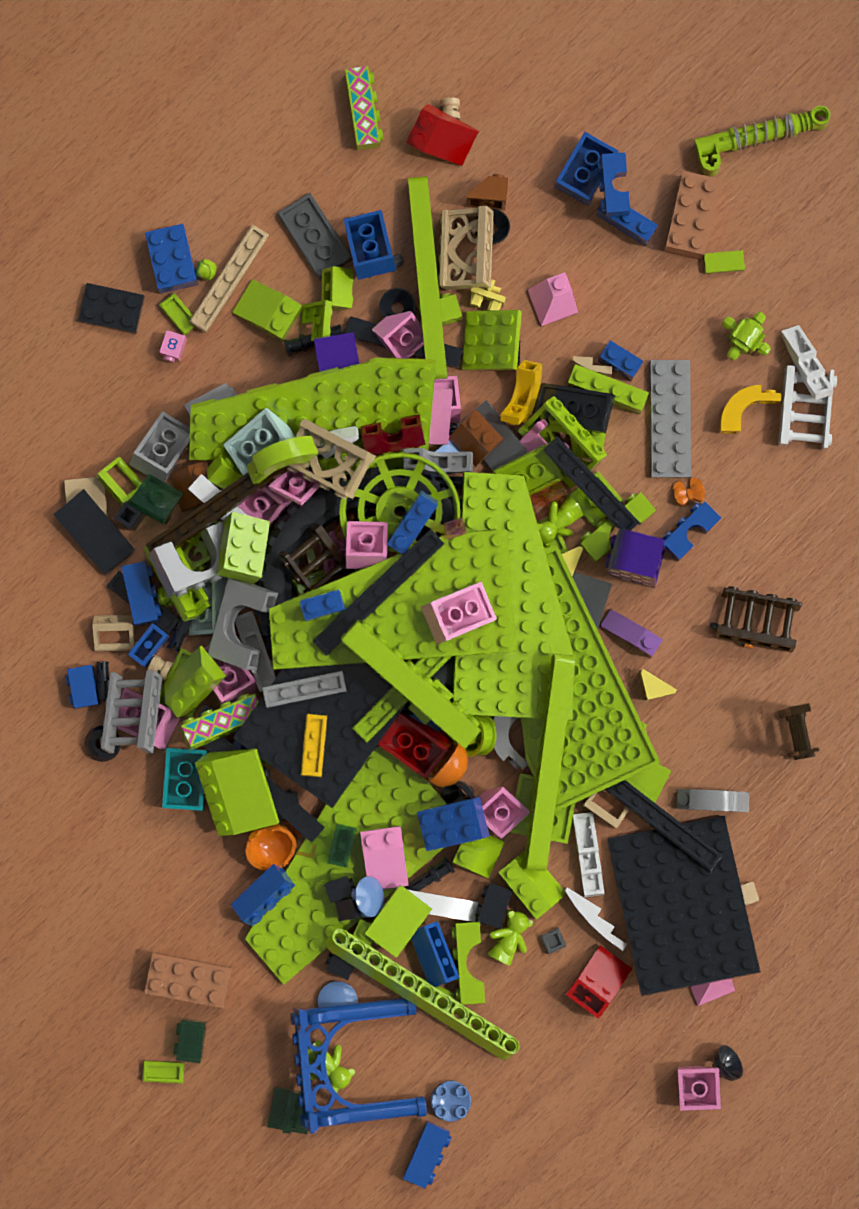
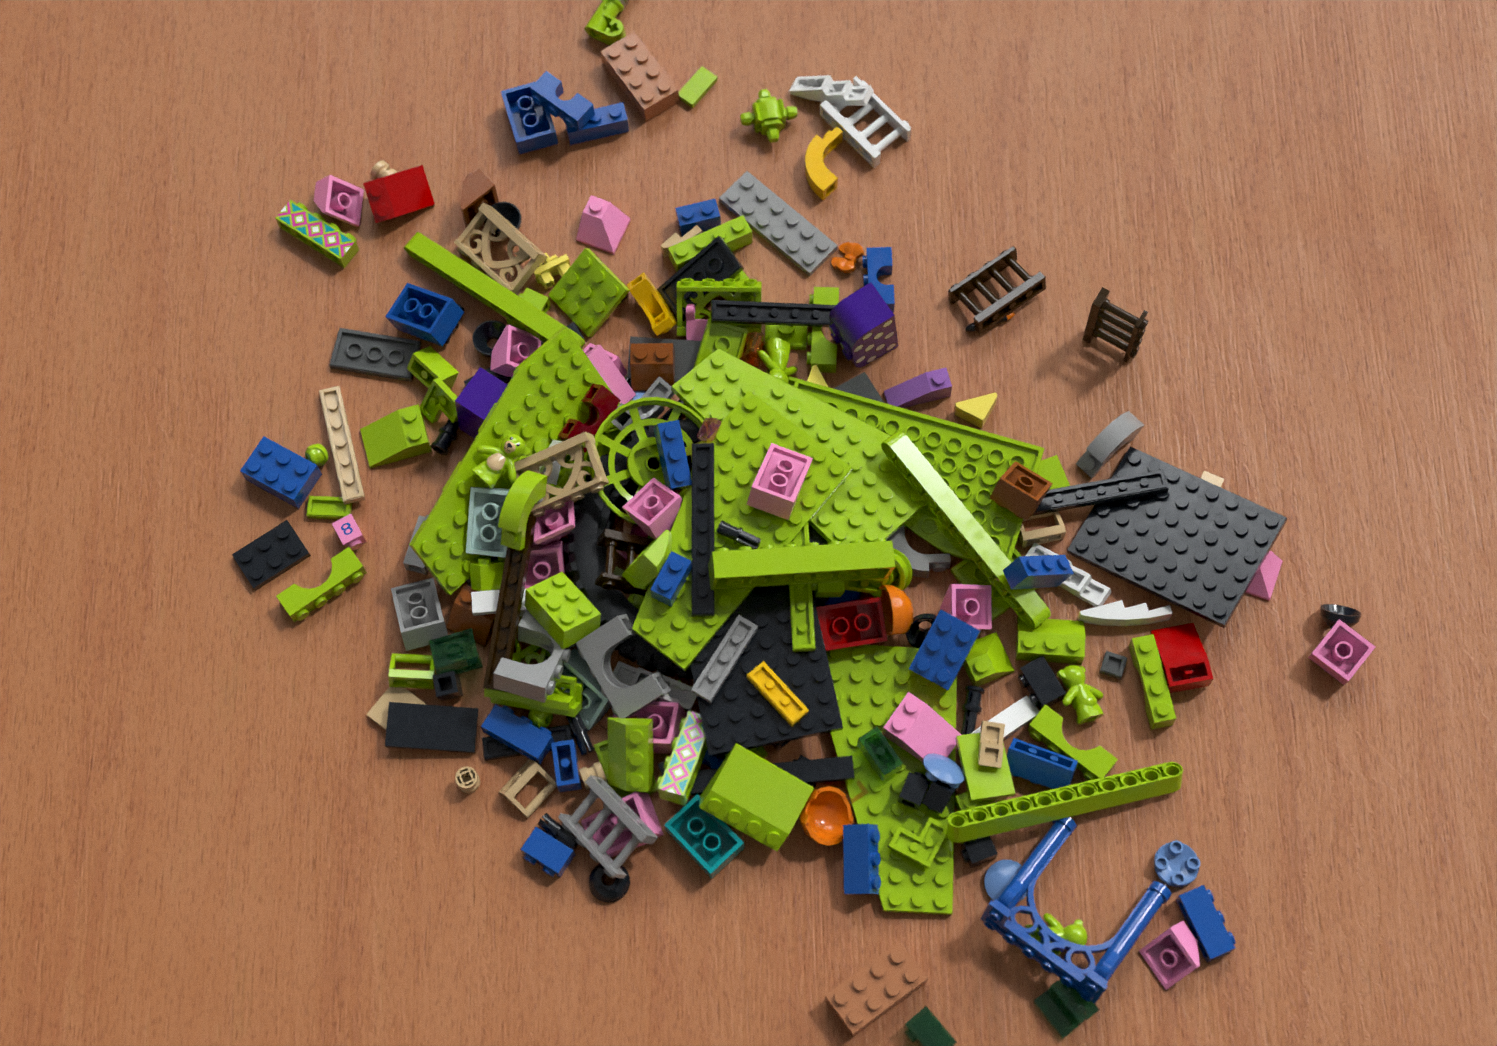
camera: 40 degrees left, 15 degrees down
(85, 589) = (470, 783): none -> tan wheel
(146, 368) = (301, 601): none -> lime arch
(303, 411) = (501, 458): none -> lime piece
(305, 928) = (920, 848): none -> lime plate
(324, 577) = (649, 562): none -> lime slope
(386, 1151) = (1172, 954): none -> bright pink slope
(395, 621) = (738, 535): none -> black axle
(400, 98) = (339, 199): none -> bright pink slope
(414, 913) = (991, 744): none -> tan slope
(563, 838) = (1038, 571): none -> blue brick
(563, 978) = (1156, 691): none -> lime arch
(613, 775) = (1020, 491): none -> dark orange slope

